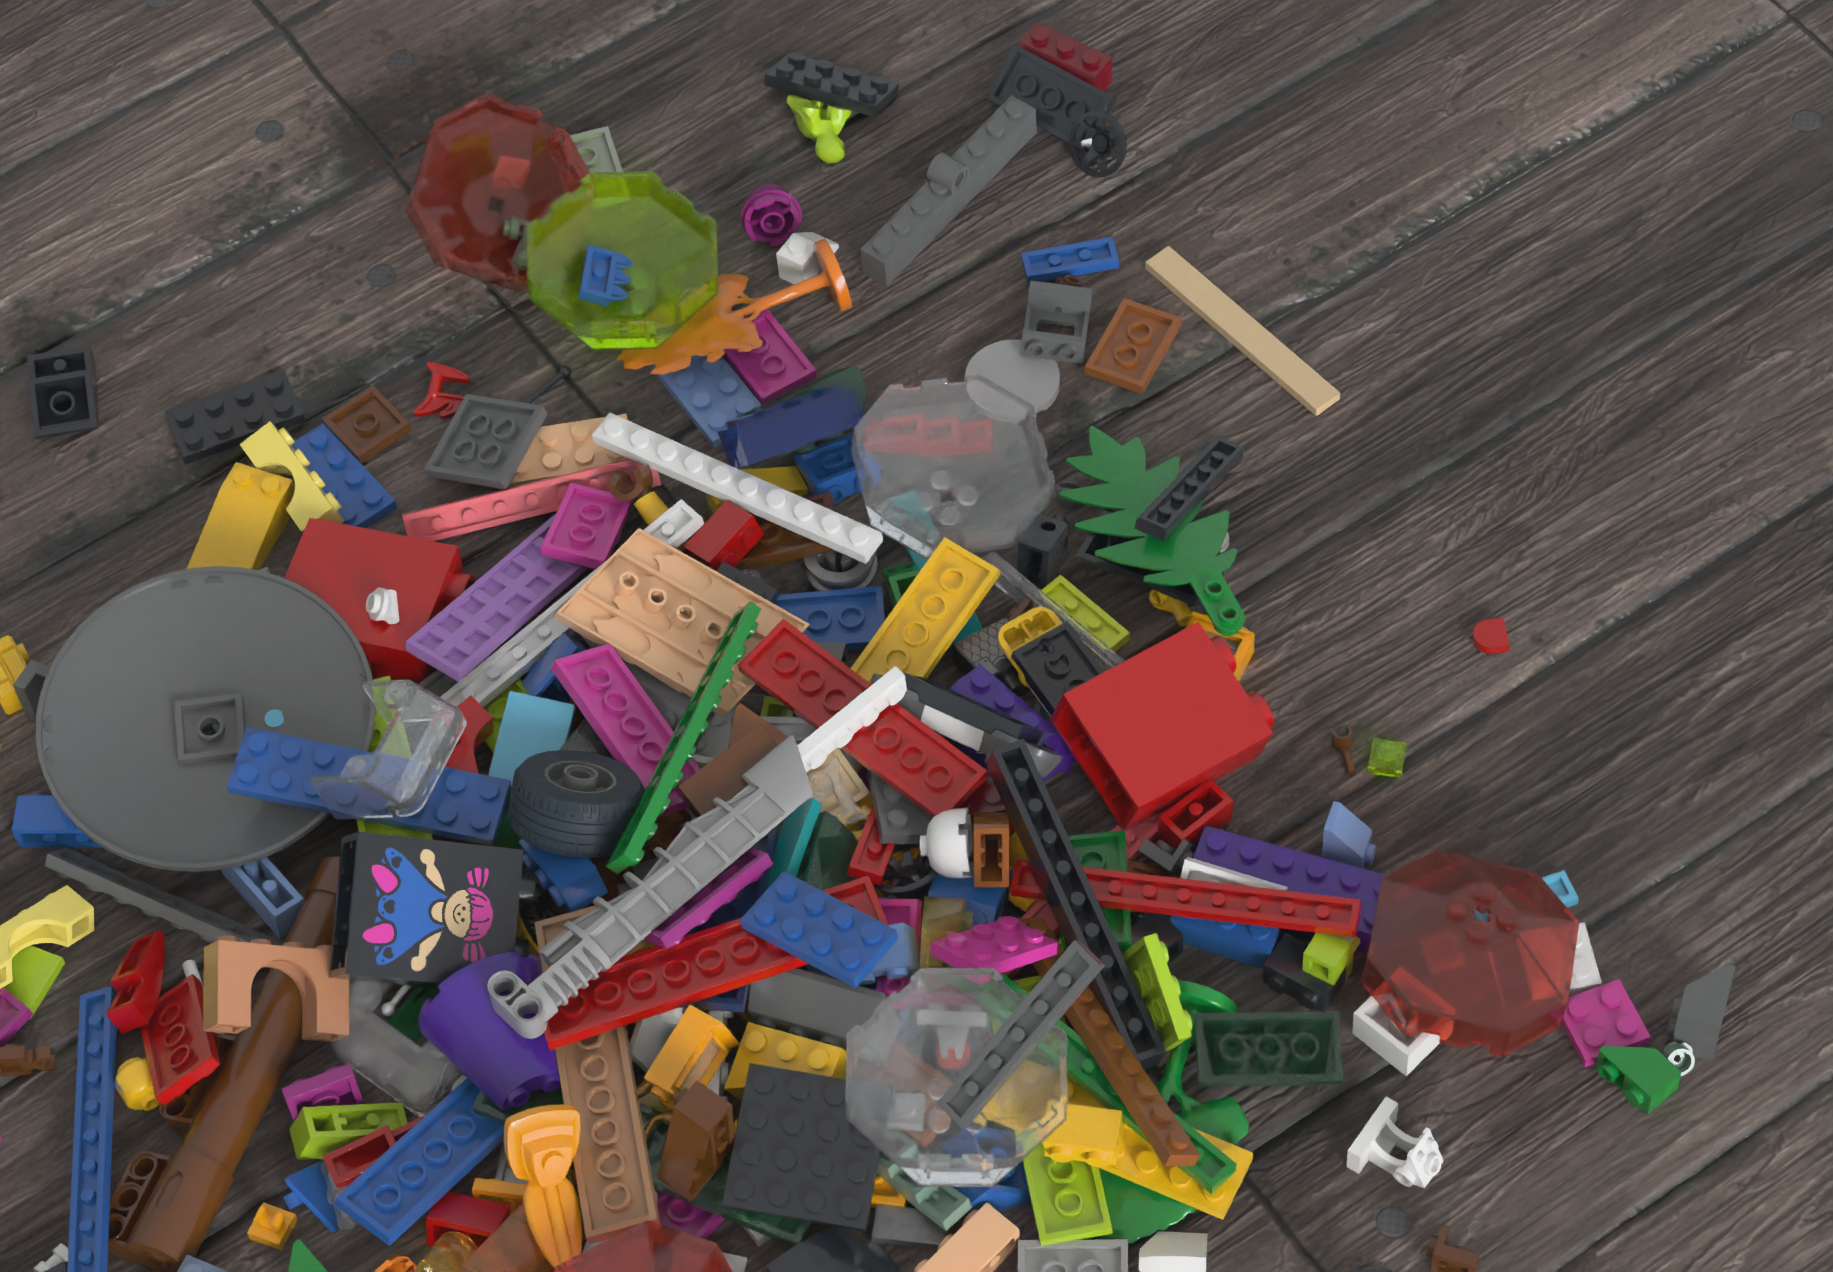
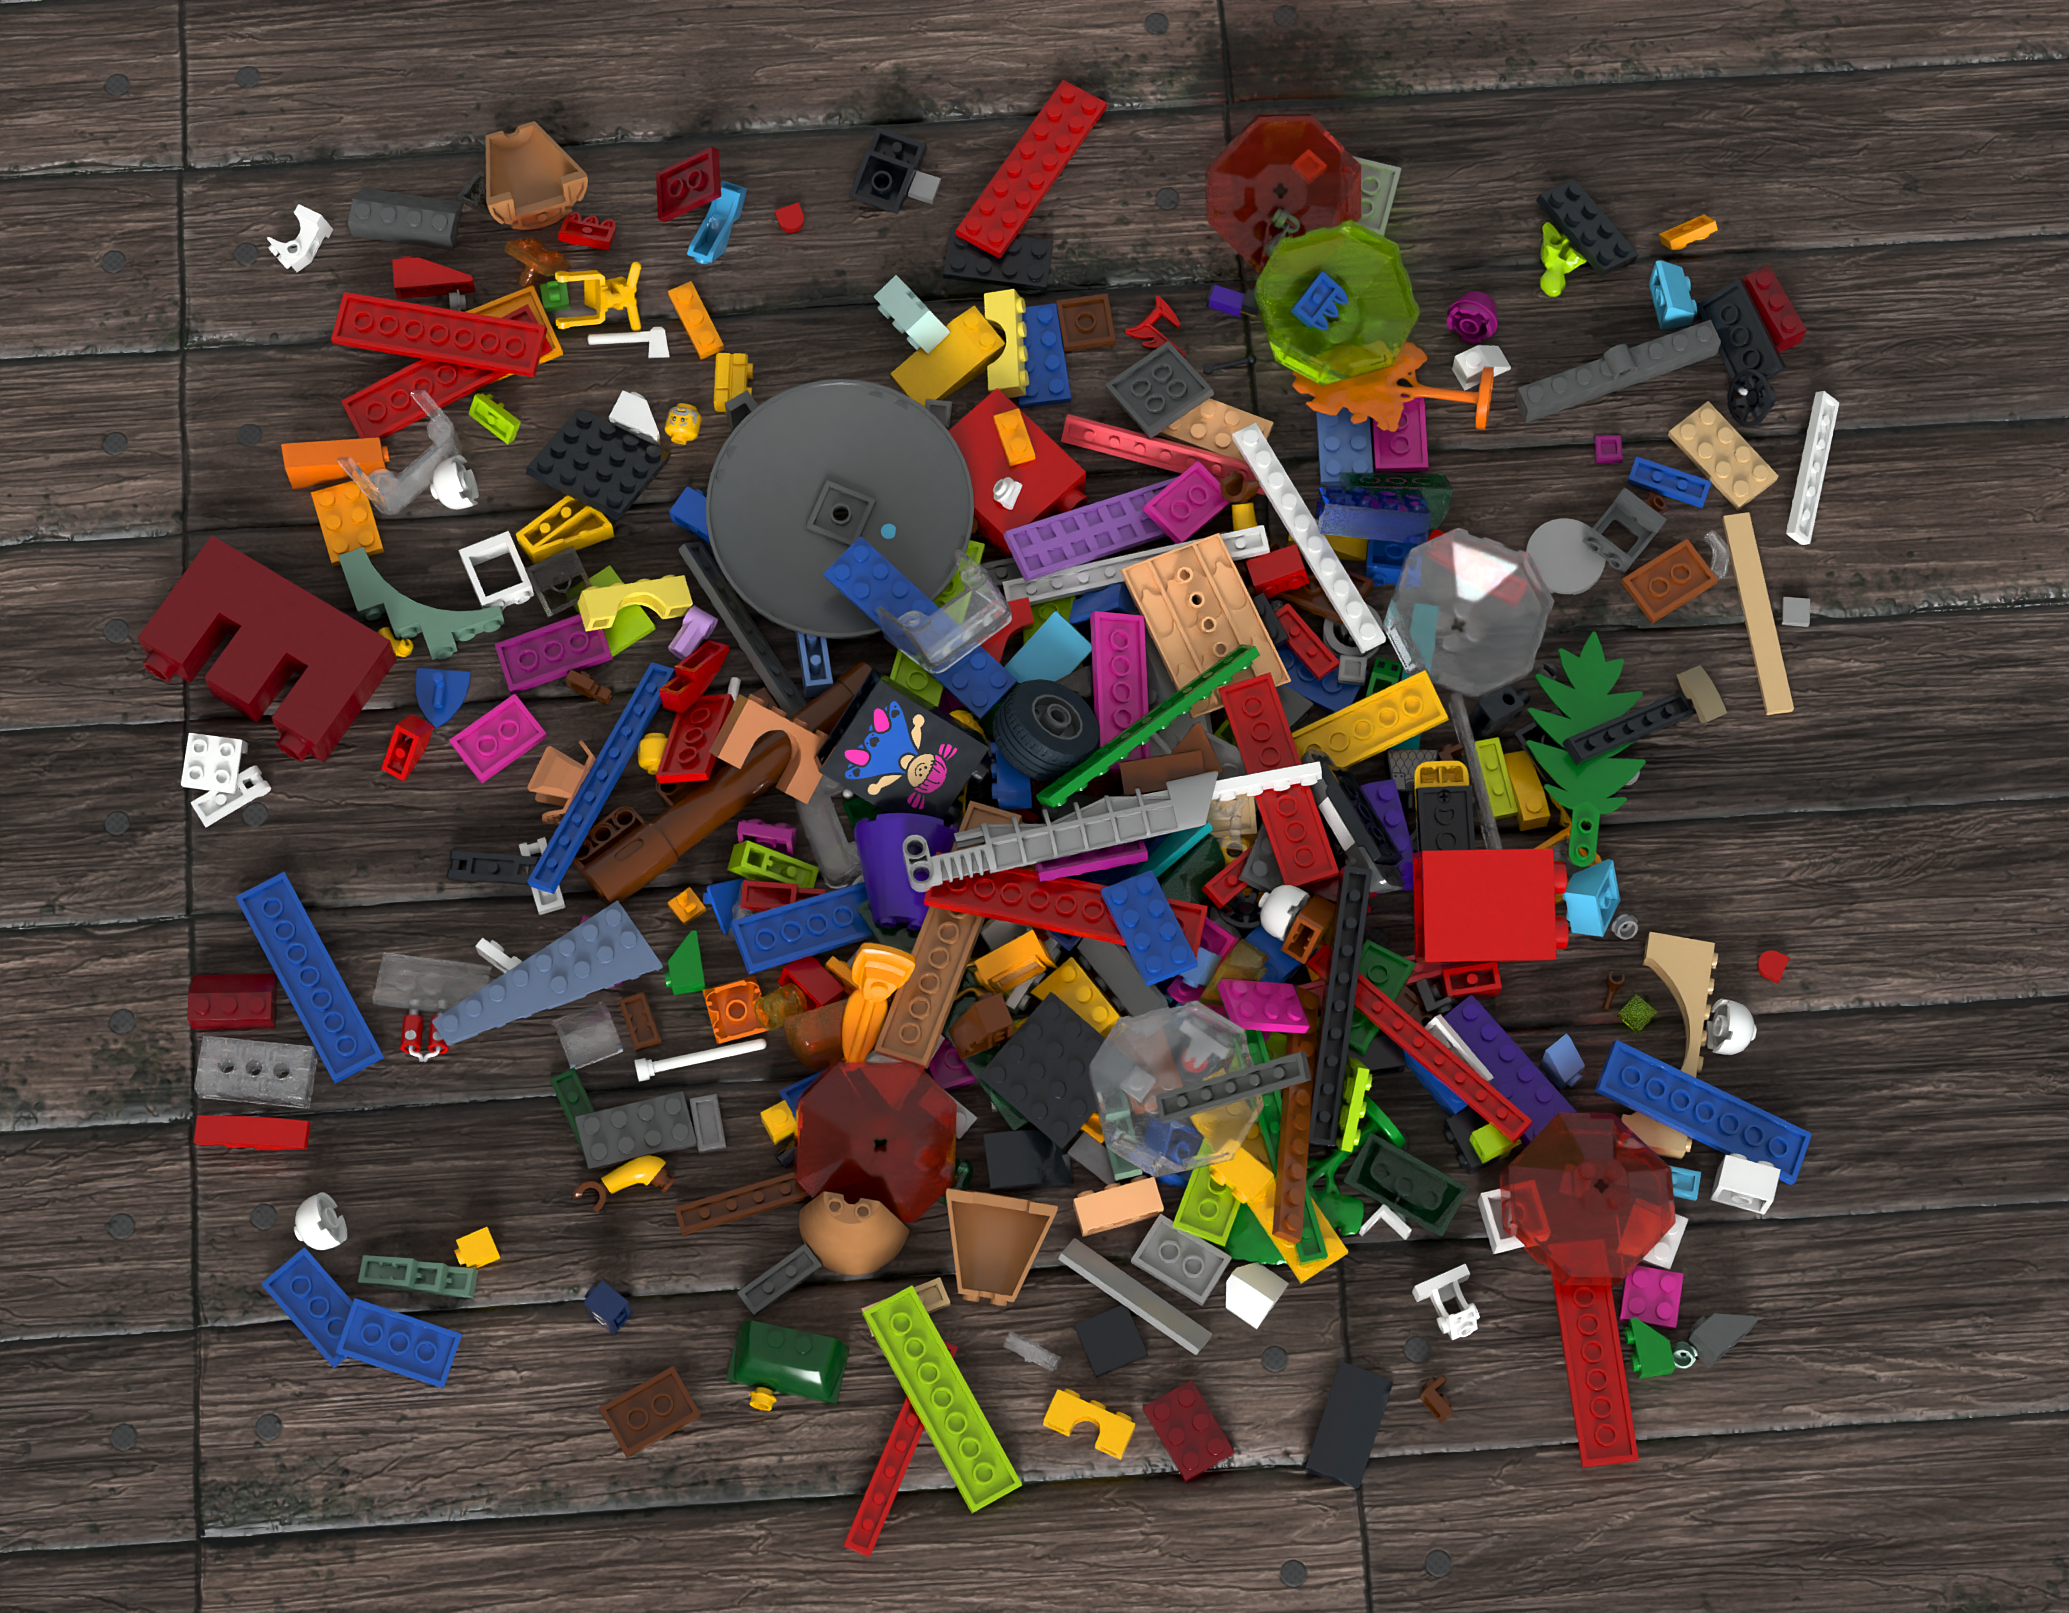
camera: 25 degrees right, 15 degrees up
(43, 1171) = (559, 780): none -> nougat piece
(111, 933) = (695, 627): none -> lavender piece
(112, 391) = (924, 187): none -> light grey tile
(172, 505) = (910, 315): none -> light aqua wedge
(218, 317) = (1031, 169): none -> red plate
(358, 552) = (1014, 437): none -> light orange plate
(509, 329) = (1232, 301): none -> dark purple piece
(802, 591) = (1306, 644): none -> red plate
(864, 592) = (1352, 670): none -> light grey tile
(939, 35) = (1692, 230): none -> light orange plate
(955, 99) = (1671, 296): none -> medium azure slope
(987, 265) = (1608, 449): none -> magenta tile
(1106, 211) = (1723, 455): none -> tan plate
(1130, 609) = (1527, 790): none -> yellow slope
(1165, 294) = (1721, 554): none -> clear arm
(1203, 176) = (1812, 468): none -> white plate
(1244, 427) = (1702, 691): none -> dark tan slope
(1265, 666) = (1592, 899): none -> medium azure slope
(1274, 1100) = (1393, 1218): none -> white bracket
(1278, 309) = (1795, 611): none -> light grey tile
(1316, 680) = (1628, 930): none -> light grey plate
(1411, 688) = (1686, 971): none -> tan arch
(1492, 712) = (1730, 1028): none -> white cylinder
(1526, 803) = (1701, 1110): none -> blue plate
(1598, 1130) = (1595, 1374): none -> red plate
(1620, 850) = (1745, 1183): none -> white brick

